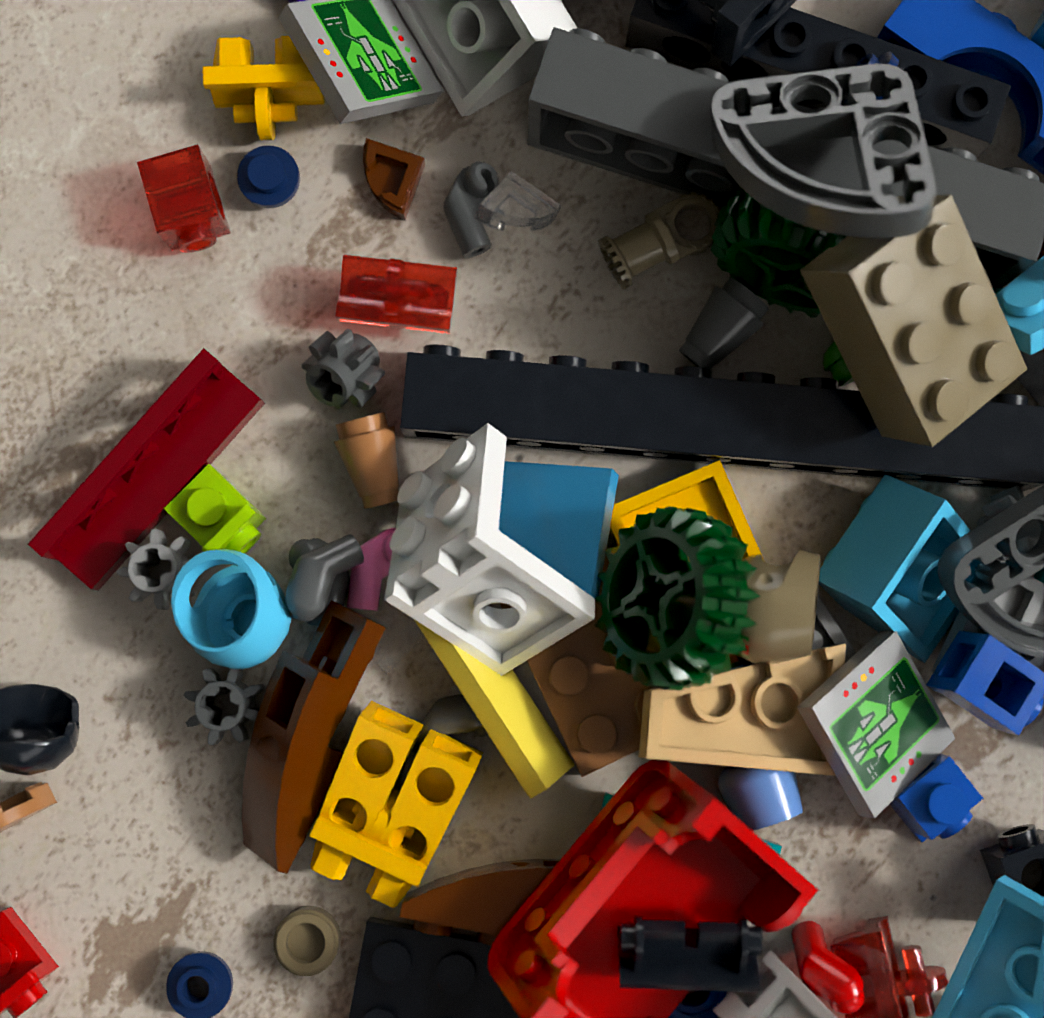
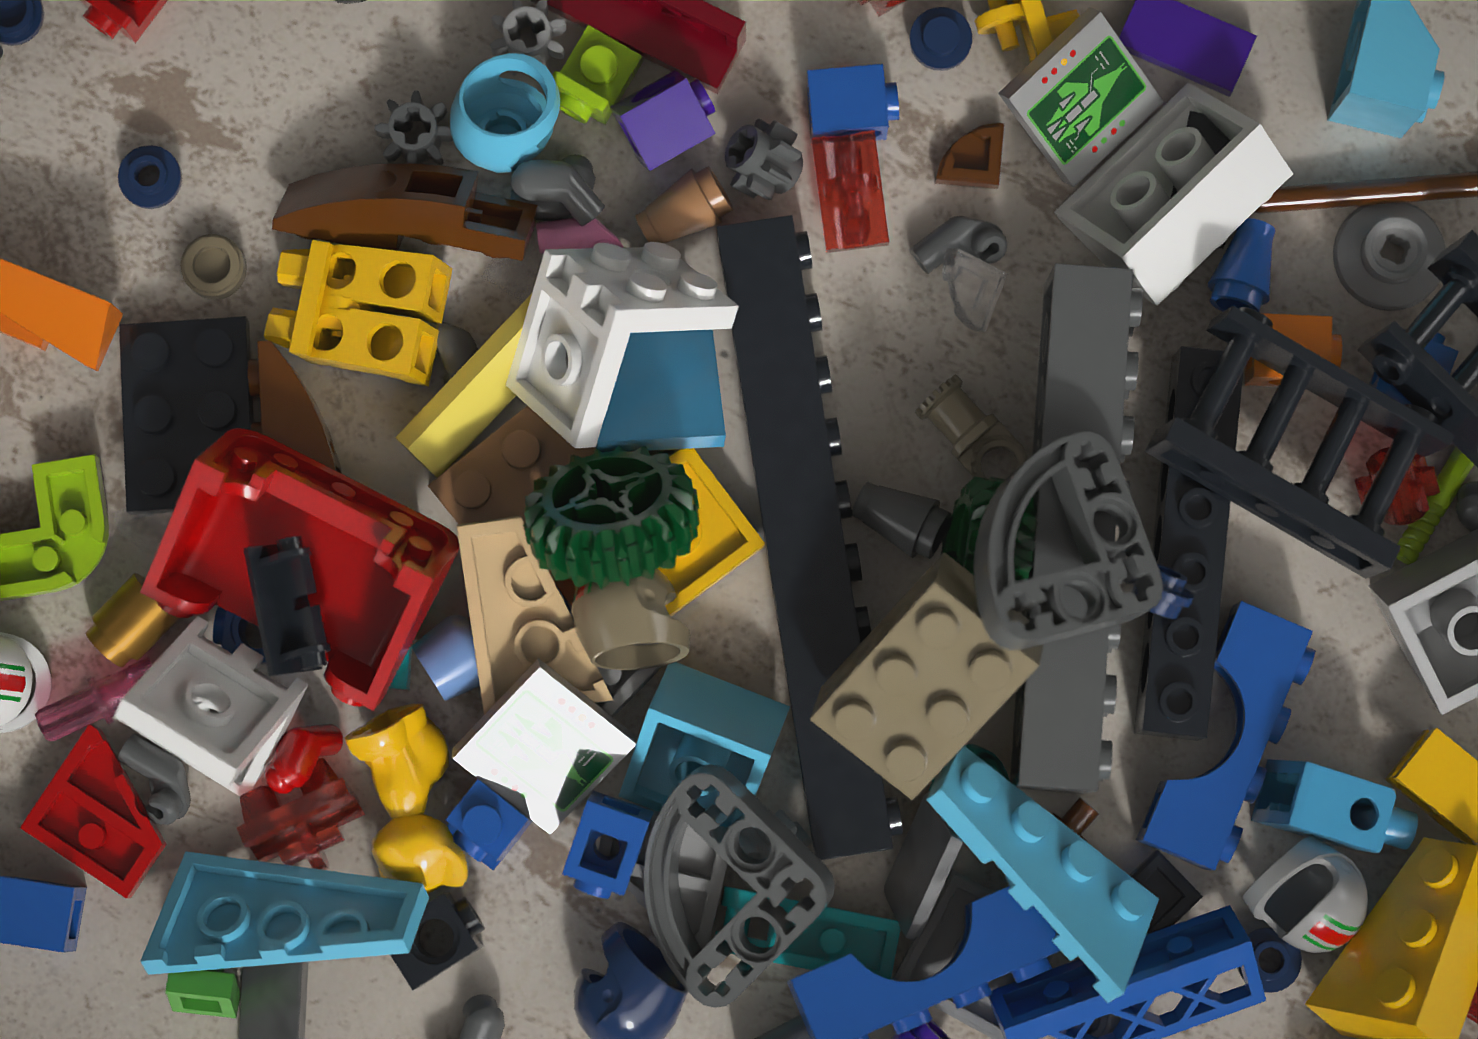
camera: 80 degrees right, 0 degrees up
(278, 454) = (665, 118): none -> dark purple brick
(308, 274) = (851, 101): none -> blue brick
(854, 866) = (405, 762): none -> yellow animal

